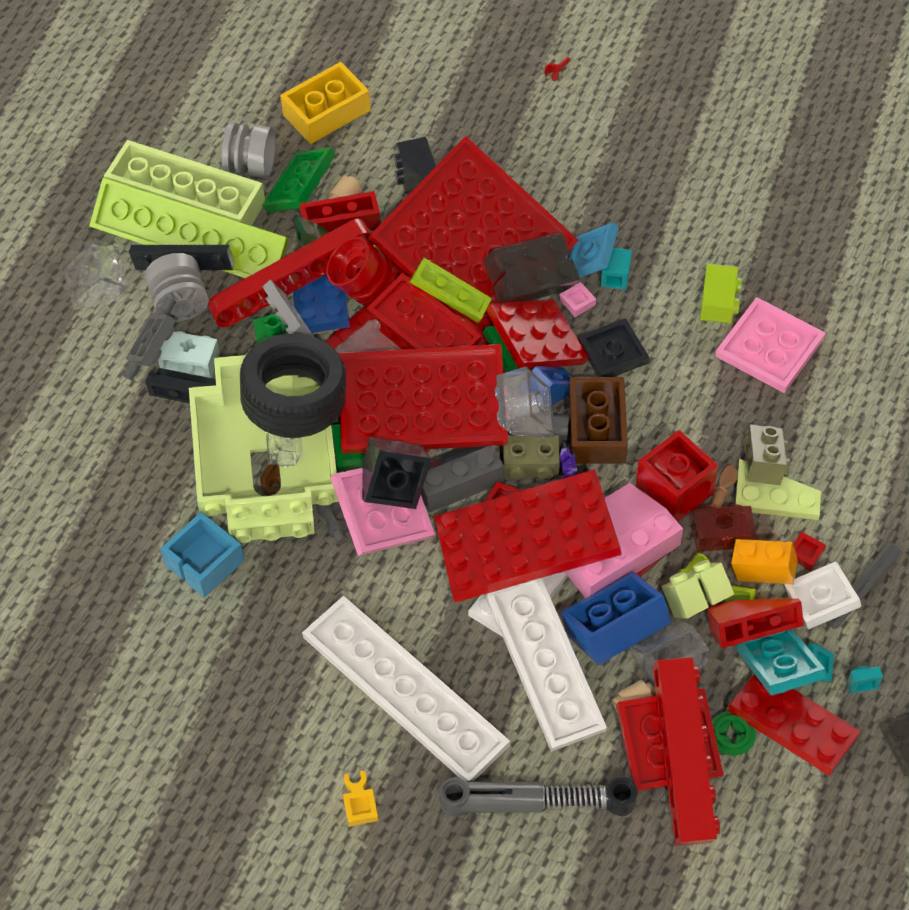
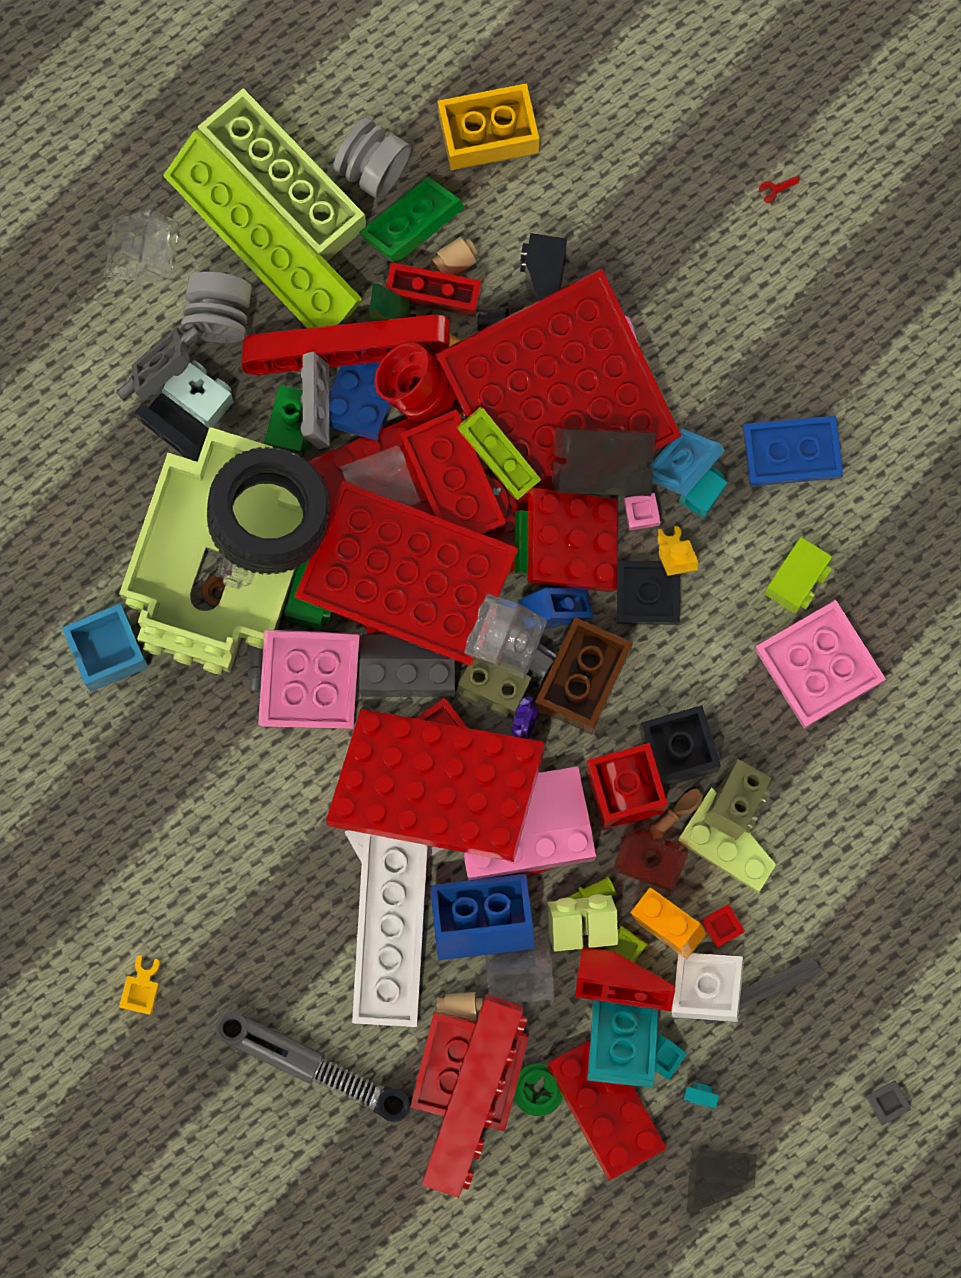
camera: 25 degrees right, 20 degrees up
(207, 256) = (229, 262): black plate -> none
(394, 473) = (332, 652): black slope -> none
(406, 690) = (241, 889): white plate -> none
(620, 313) = (676, 554): none -> yellow plate
(666, 218) = (792, 451): none -> blue plate
(706, 429) = (681, 745): none -> black brick

